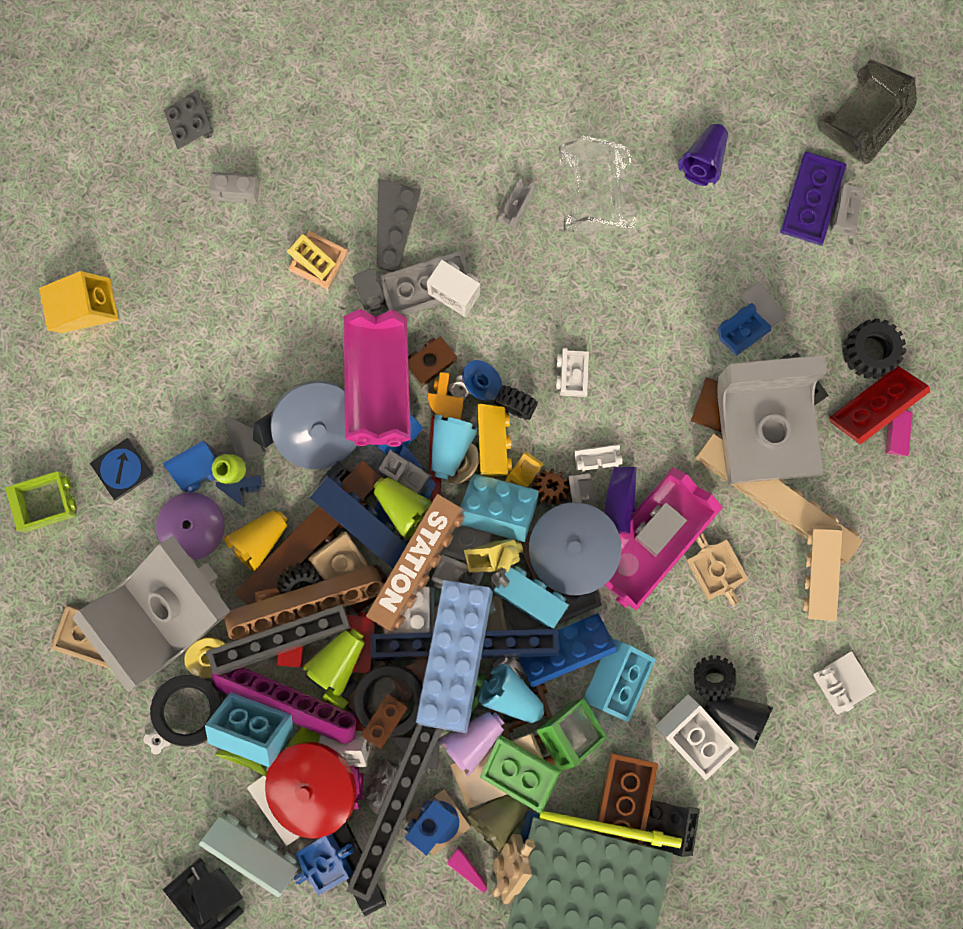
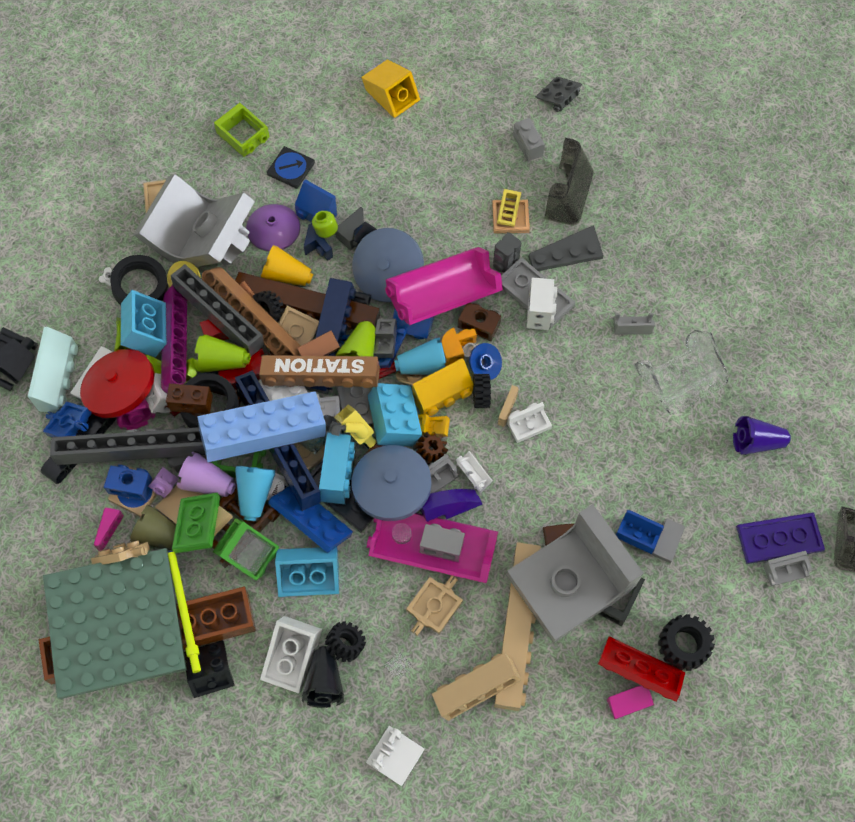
camera: 65 degrees right, 15 degrees down
(342, 191) = (568, 200): none -> clear smoke windscreen
(383, 549) = (320, 346): none -> nougat tile
(447, 787) = (163, 482): none -> lavender bracket
(543, 384) = (508, 405): none -> tan tile

